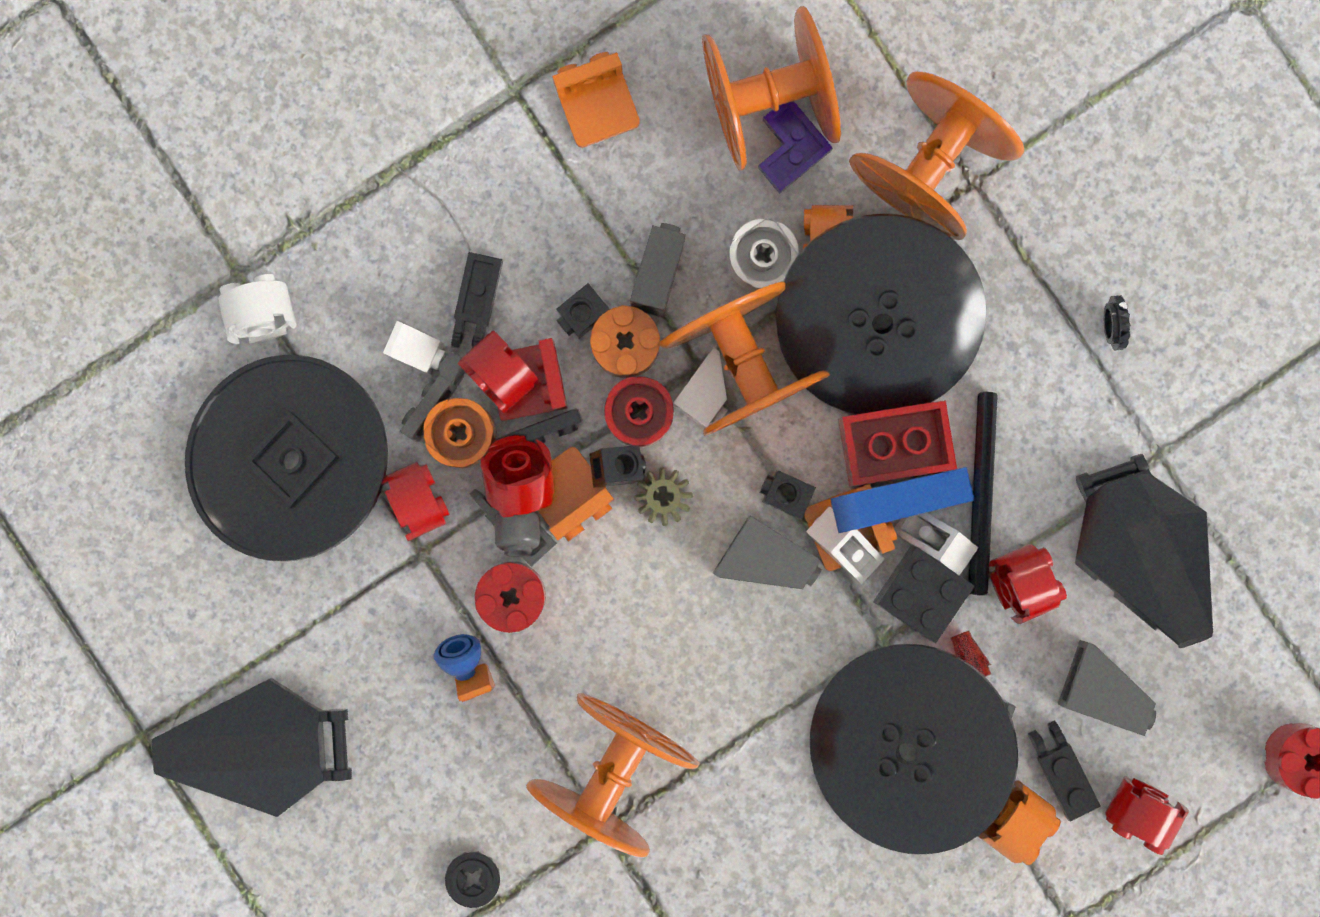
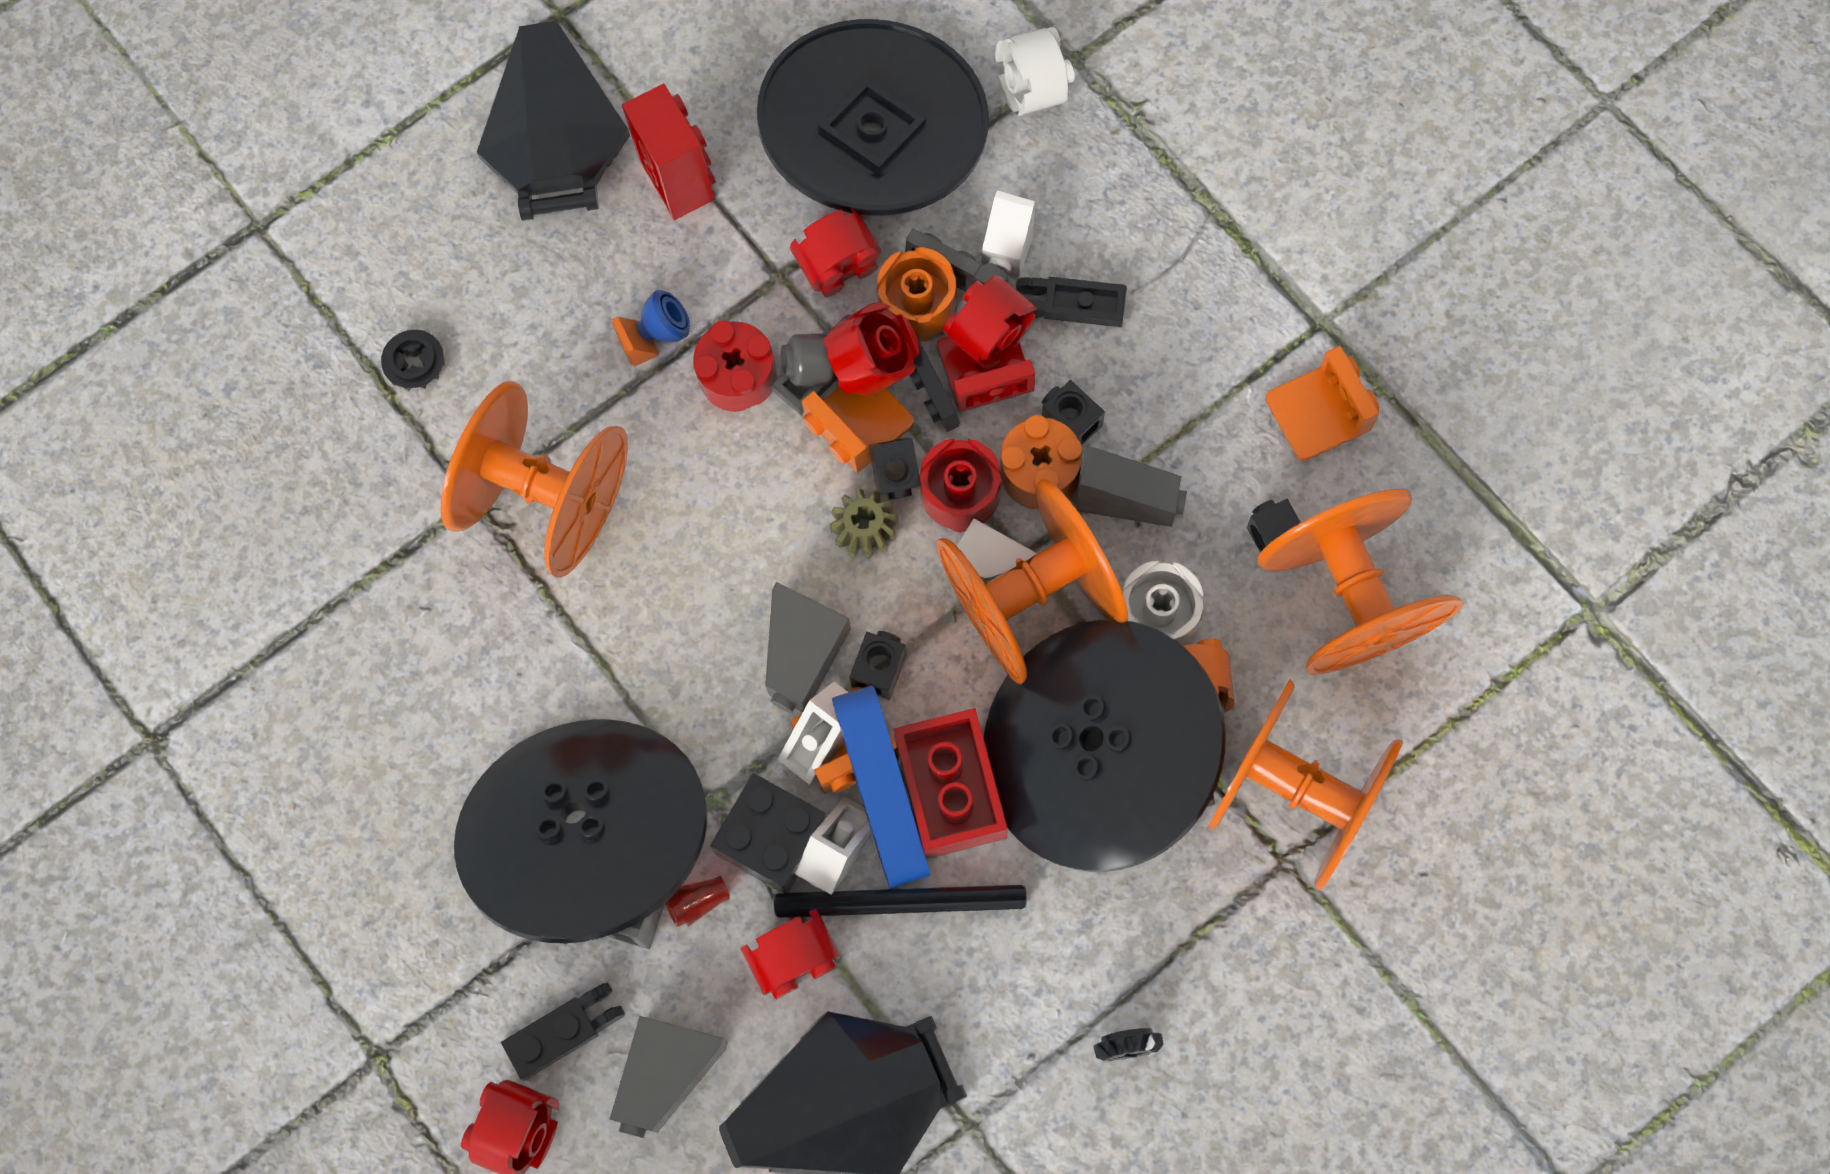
camera: 90 degrees right, 15 degrees down
(306, 640) = (670, 150): none -> red brick
(703, 152) = (1271, 521): none -> black brick
(800, 147) = (1292, 641): dark purple plate -> none
(1022, 826) = (496, 969): orange brick -> none

